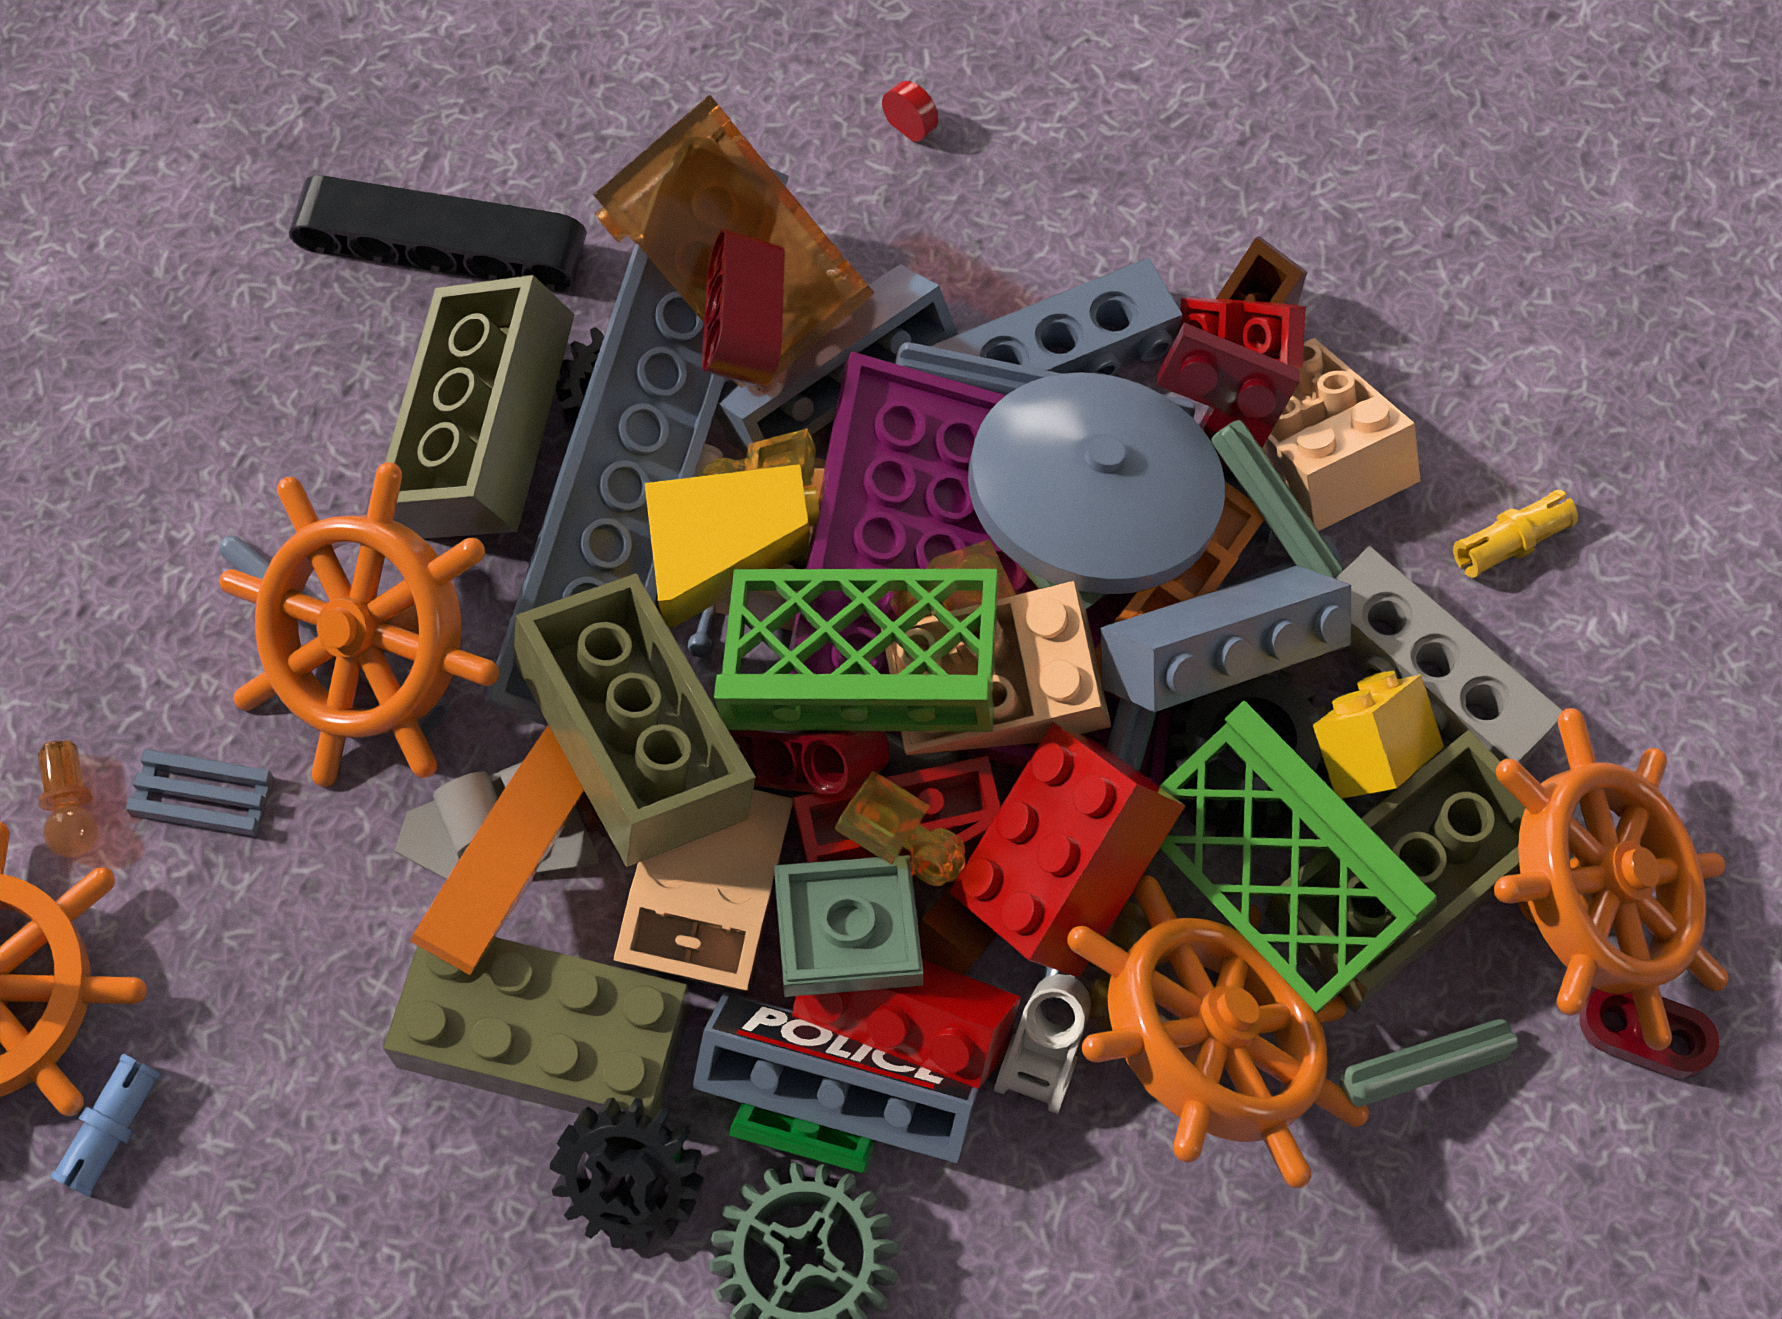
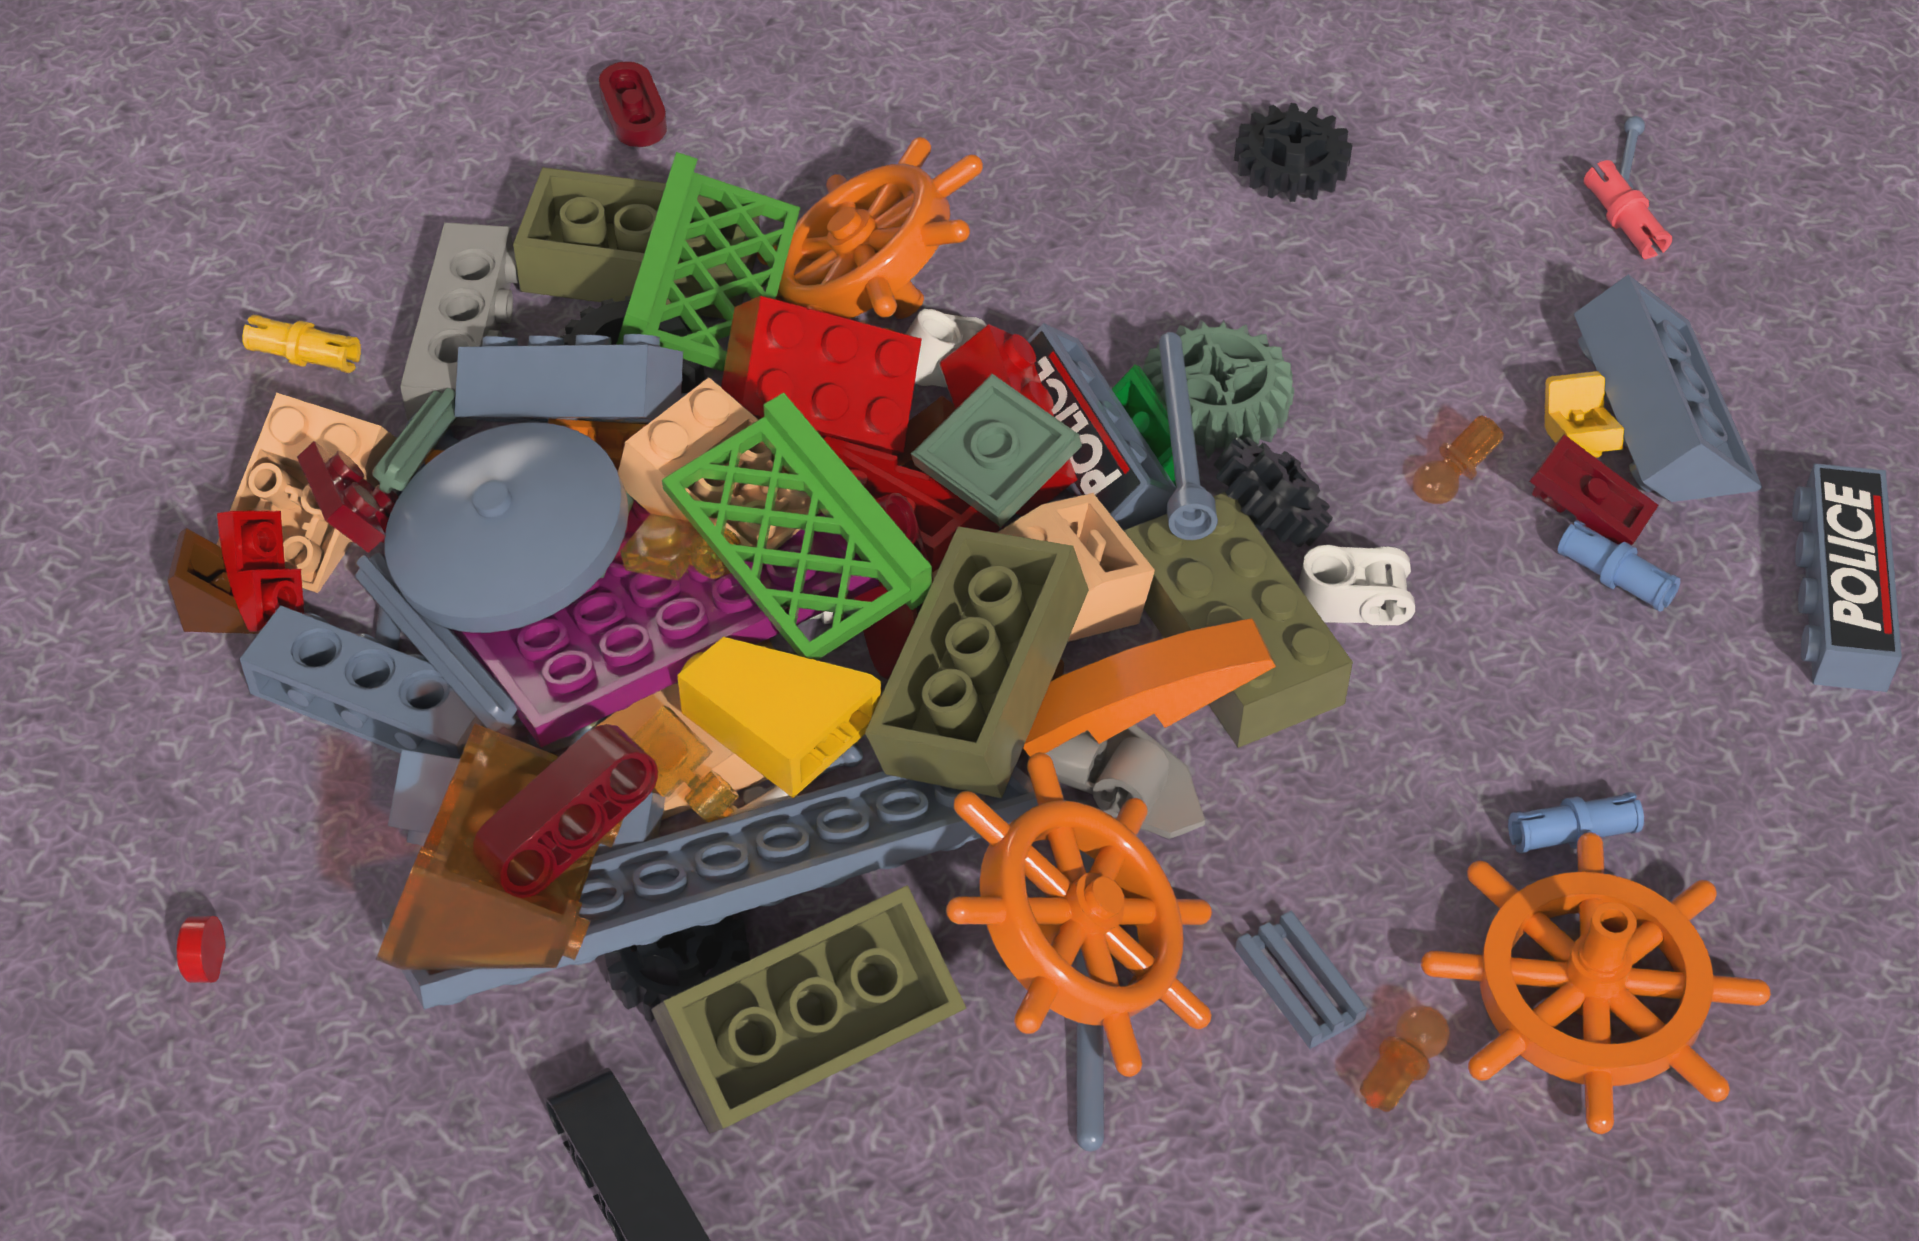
camera: 130 degrees left, 15 degrees down
(476, 1174) = (1354, 584): none -> white piece
(638, 1033) = (1191, 507): none -> sand blue piece
(889, 818) = (903, 461): clear yellow plate -> none
(1378, 735) = (560, 290): yellow brick -> none
(1428, 1062) = (768, 172): sand green axle -> none
(1611, 879) = (558, 125): orange piece -> none

